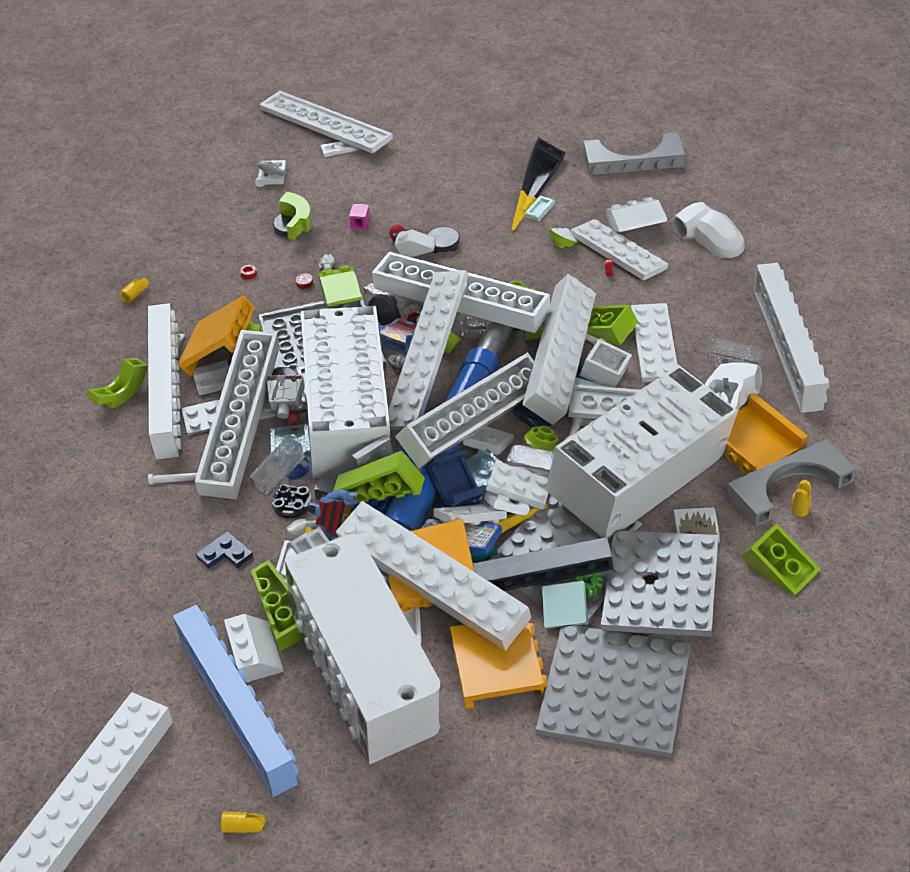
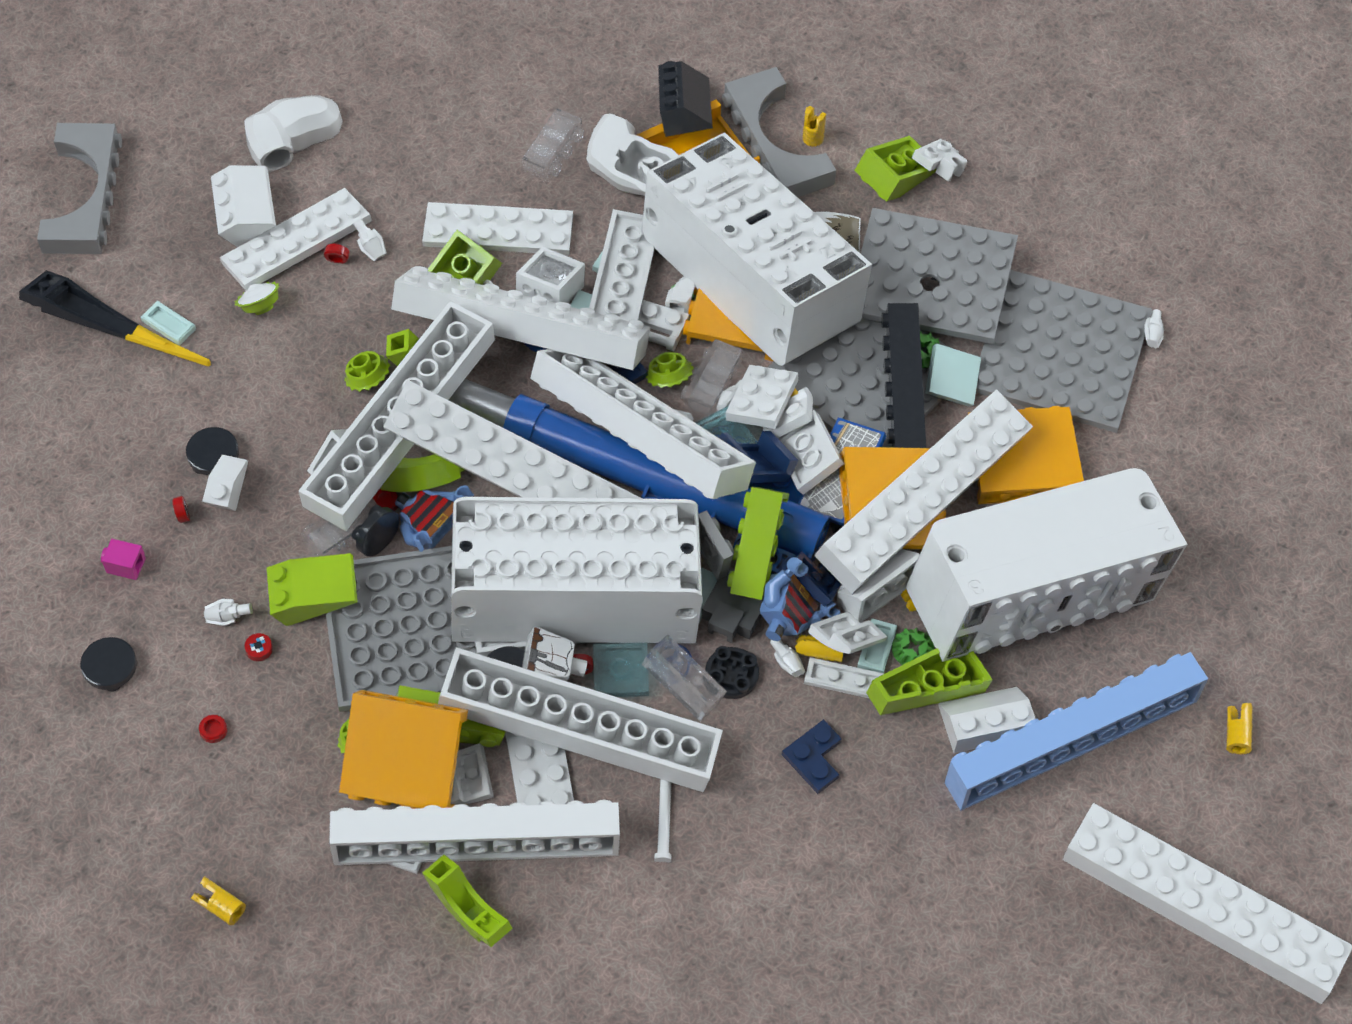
camera: 90 degrees left, 15 degrees up
(298, 208) = (102, 634): lime arch -> none
(624, 280) = (370, 241): none -> white piece
(648, 754) = (1154, 329): none -> white piece
(791, 338) = (535, 81): white brick -> none
(796, 411) = (683, 99): none -> black slope
(797, 586) = (941, 156): none -> white plate

